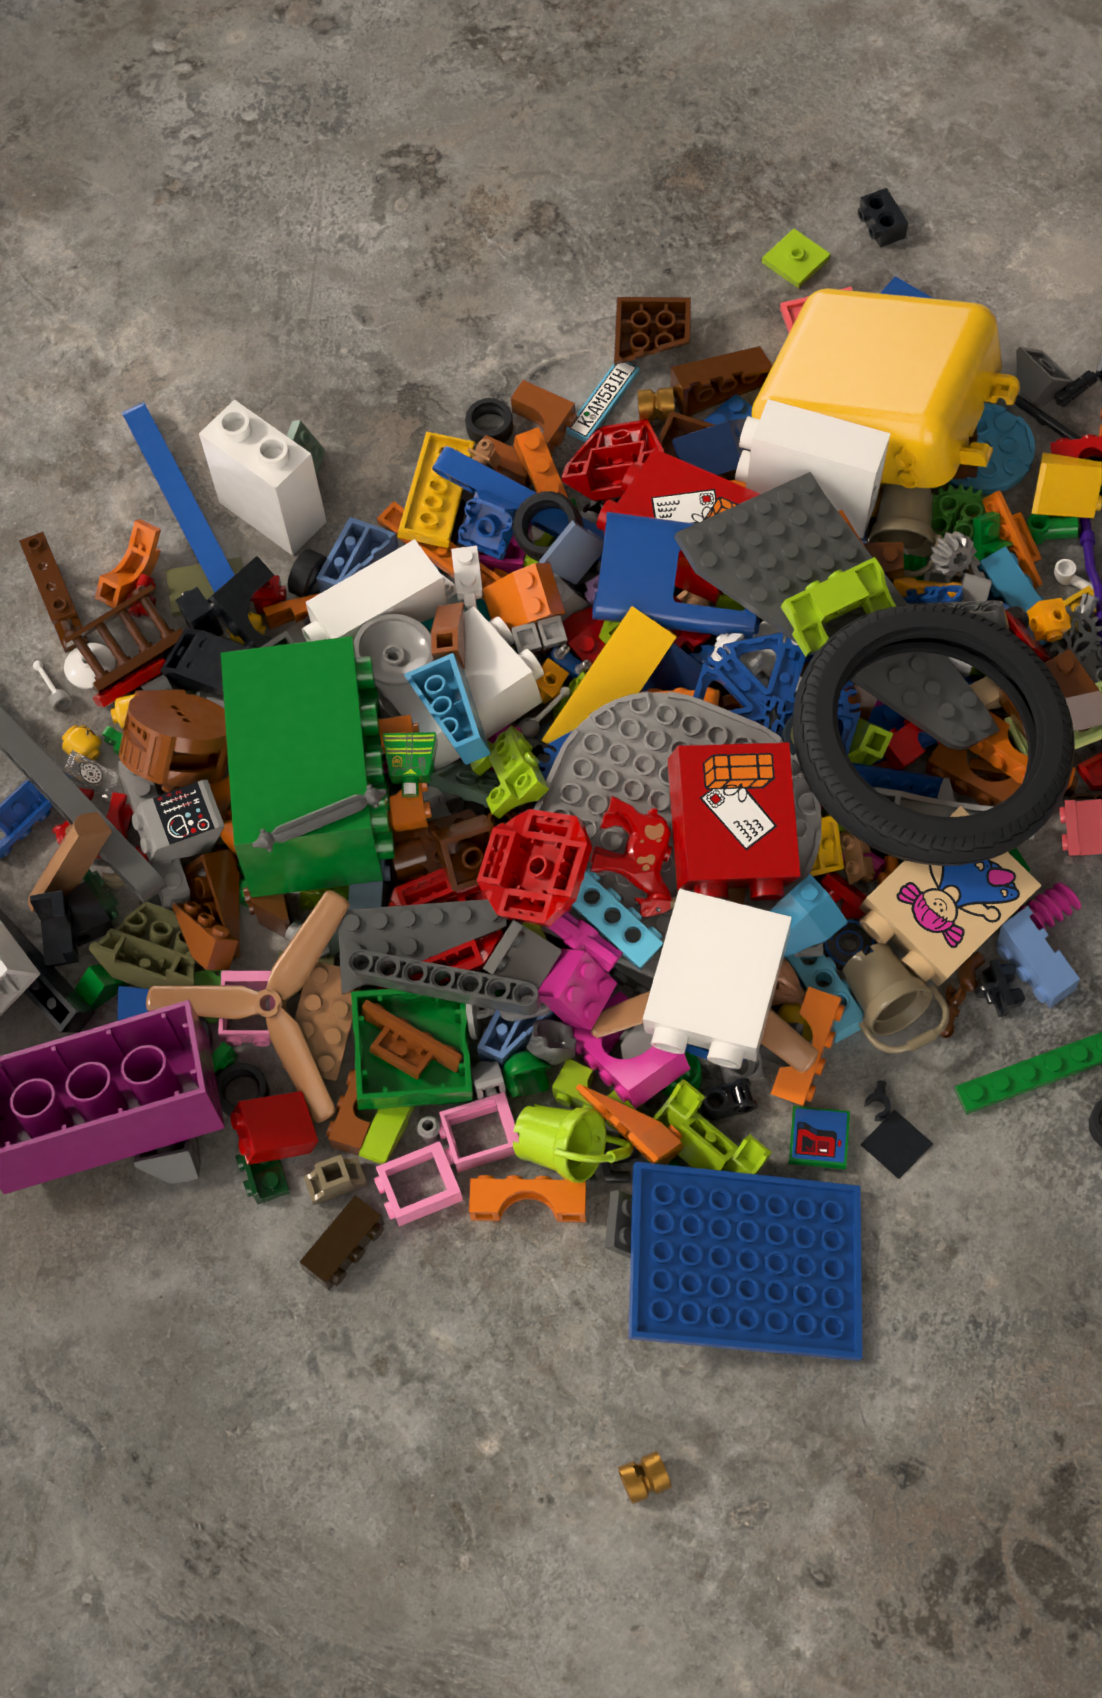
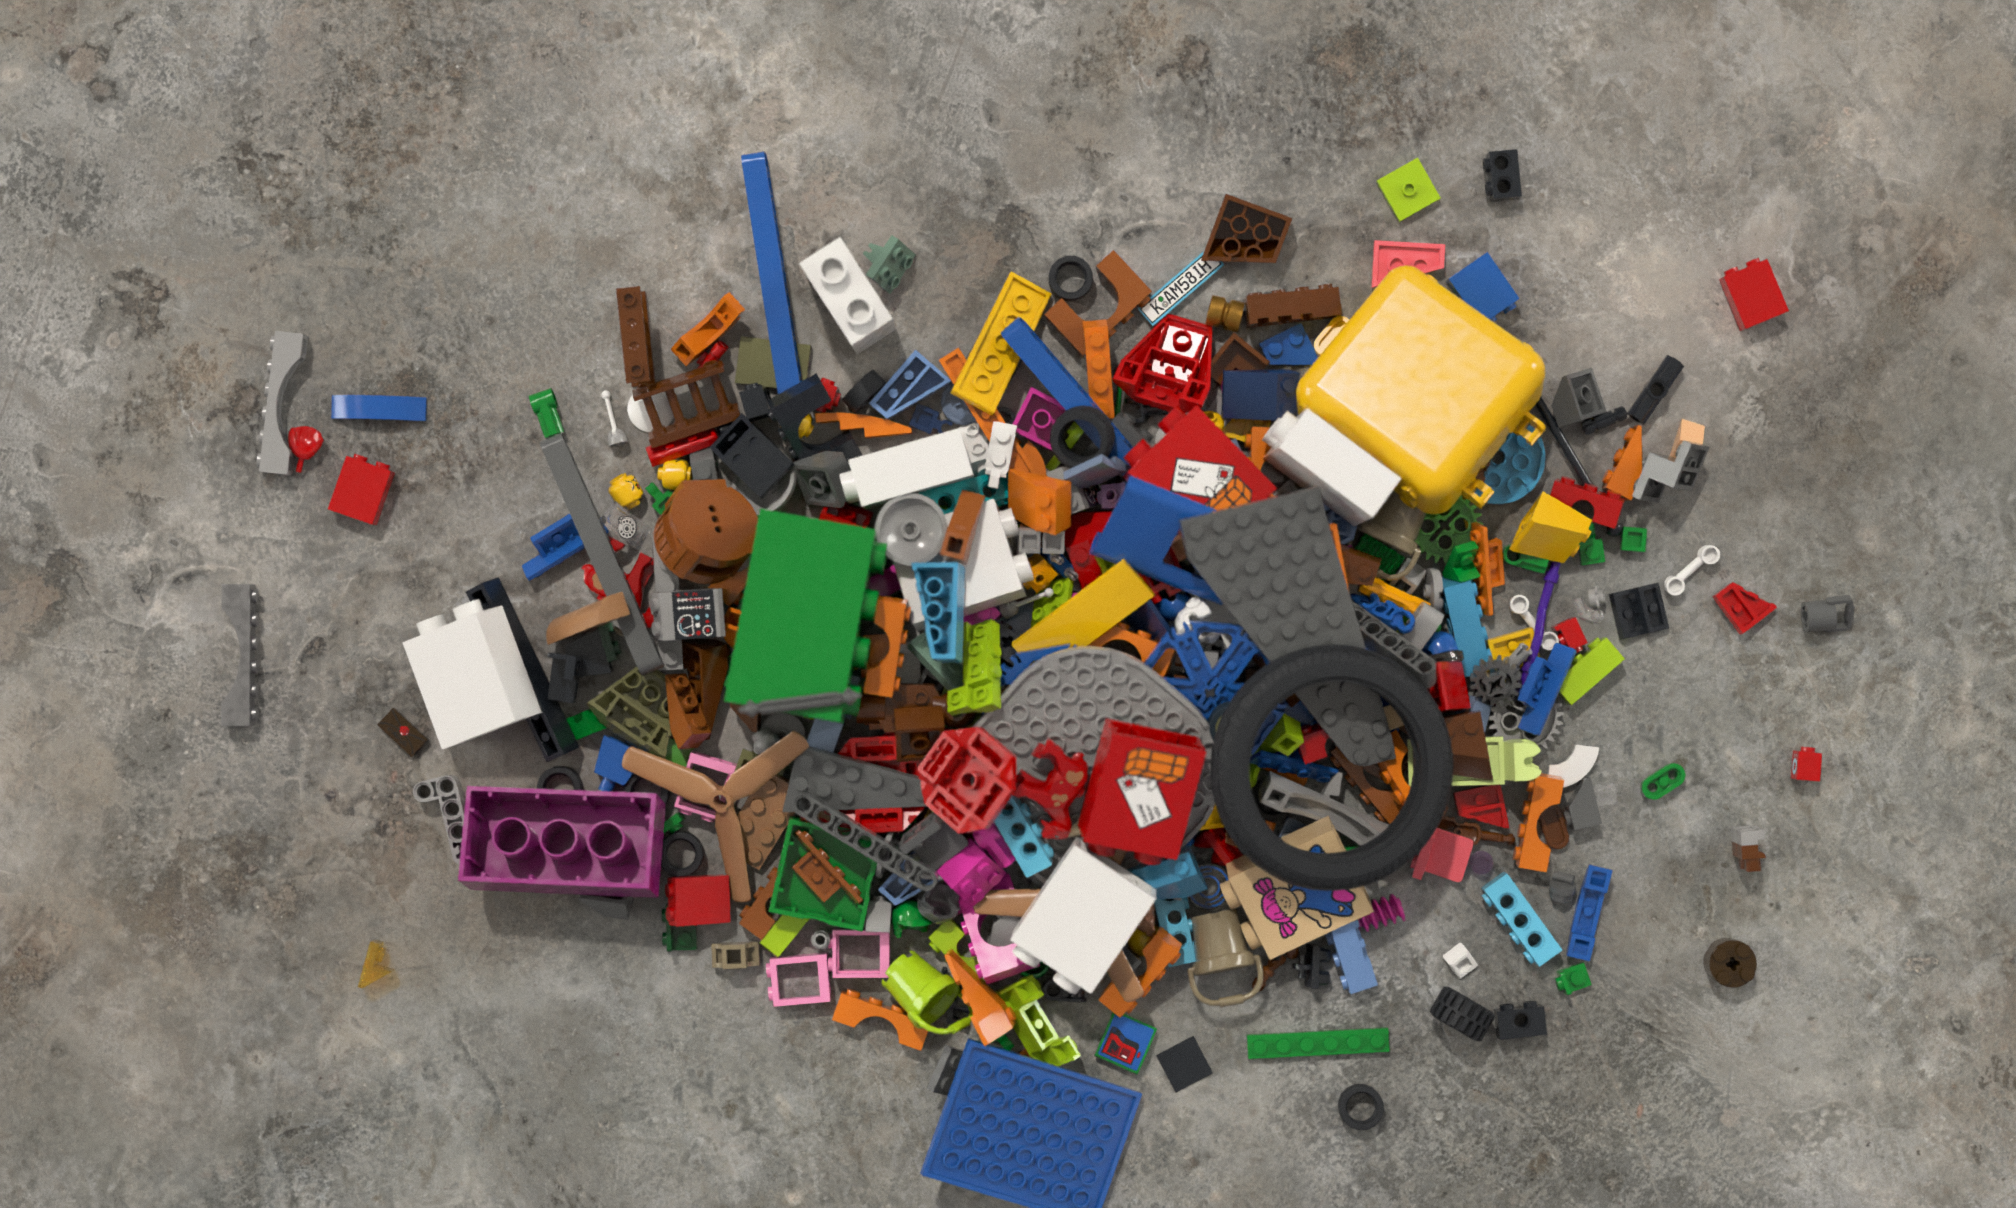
camera: 15 degrees right, 25 degrees up
(342, 1243) = (727, 1009): dark brown brick -> none
(410, 759) = (893, 648): green torso -> none
(486, 454) = (1050, 337): medium nougat hinge -> none
(488, 524) = (1034, 408): blue slope -> none
(832, 598) = (1295, 622): lime bracket -> none
(879, 1095) = (1186, 1020): black piece -> none
(953, 554) = (1421, 578): light grey gear -> none
(1049, 620) = (1476, 673): light orange brick -> none

